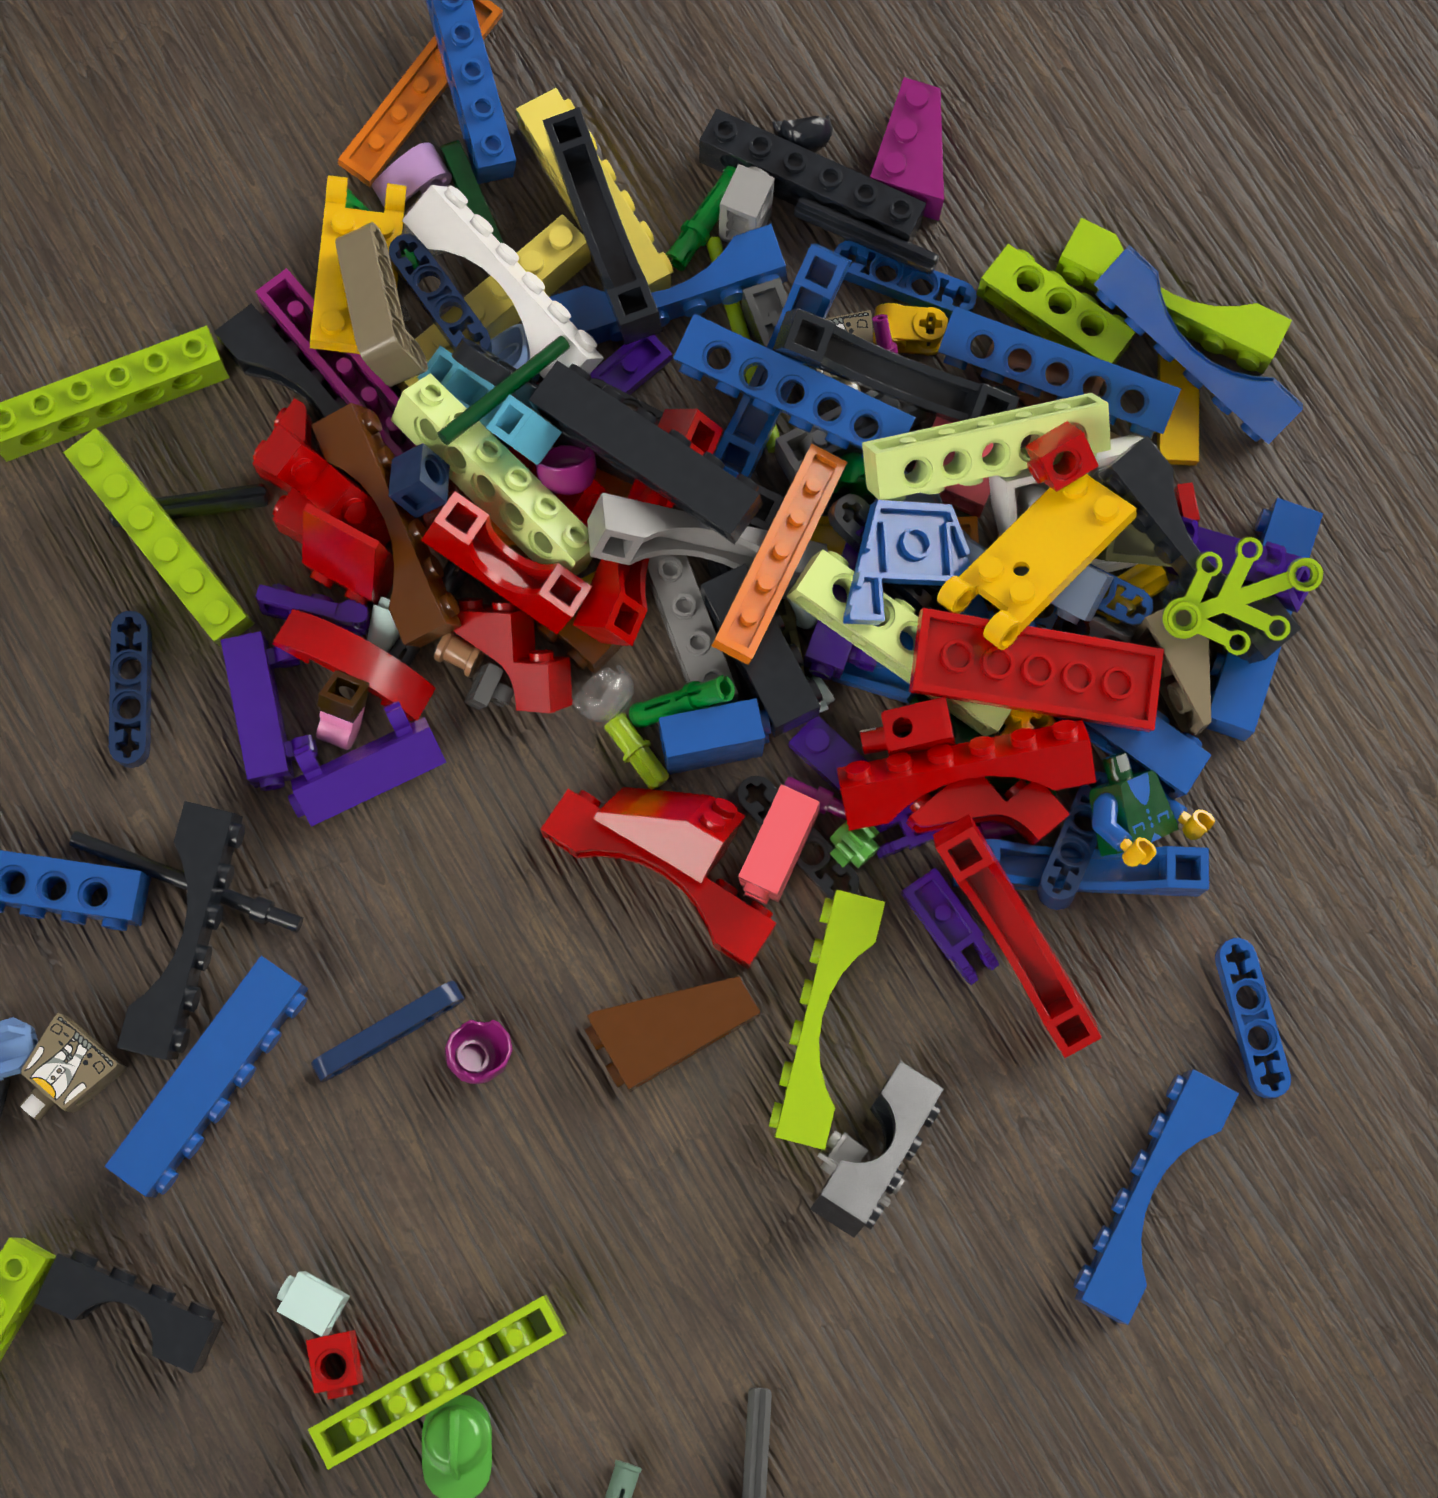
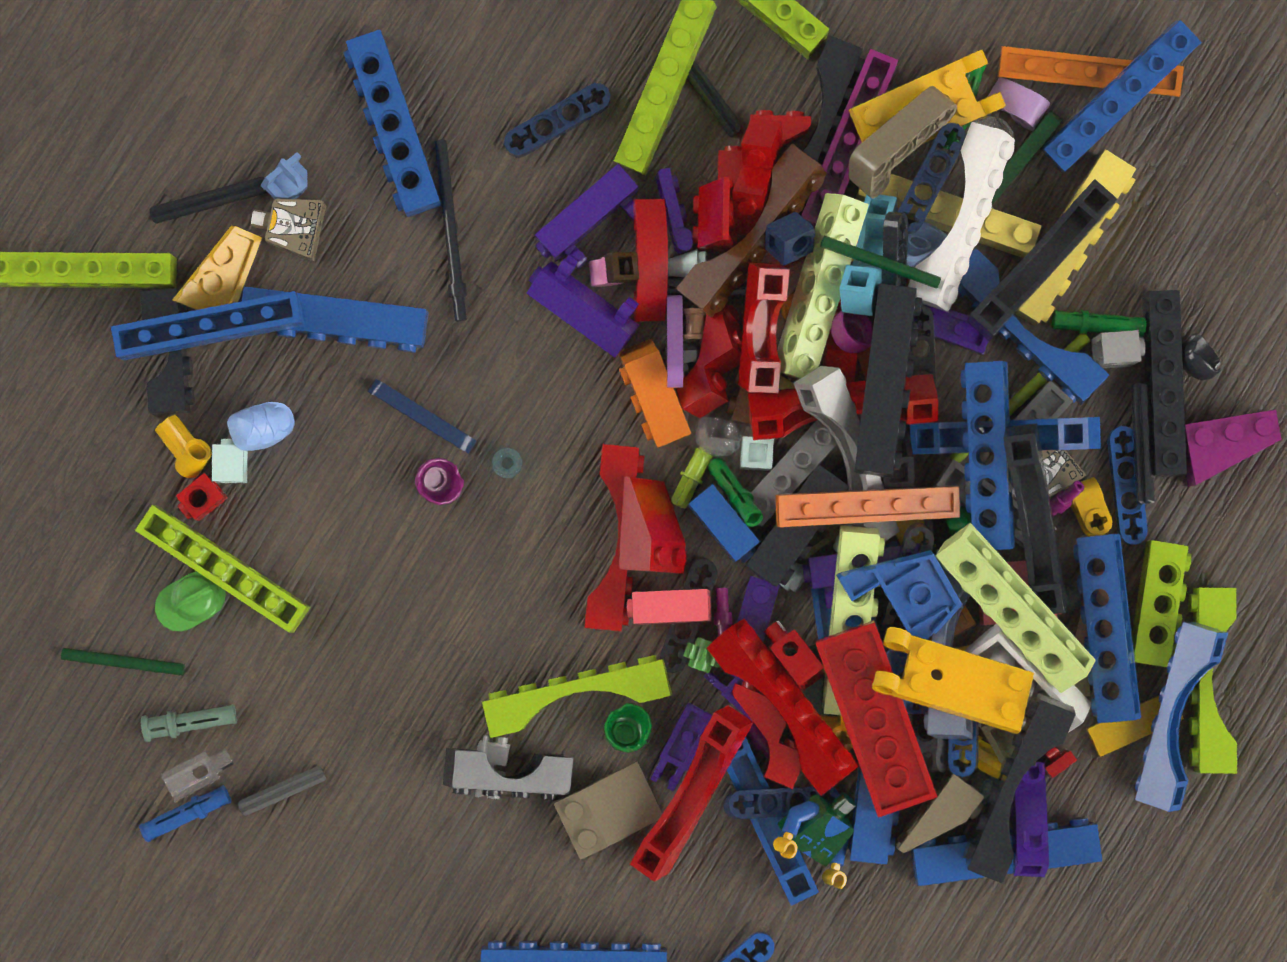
camera: 65 degrees right, 10 degrees up
(76, 1190) = (222, 272): none -> yellow wing
(123, 1237) = (207, 326): none -> blue brick
(159, 1018) = (476, 233): black arch -> none
(272, 1347) = (189, 452): none -> yellow piece
(288, 1237) = (260, 425): none -> light blue piece
(467, 679) = (674, 341): none -> medium lavender beam
(494, 947) = (497, 463): none -> clear light blue plate
(513, 739) = (658, 404): none -> orange wedge
(649, 658) = (756, 454): none -> light aqua brick
(669, 1028) = (514, 594): reddish brown slope -> none
(897, 977) = (628, 728): none -> green hair
(984, 1055) = (608, 810): none -> dark tan slope
(1076, 457) = (1040, 664): red brick -> none
(1233, 598) = (994, 828): lime plant -> none

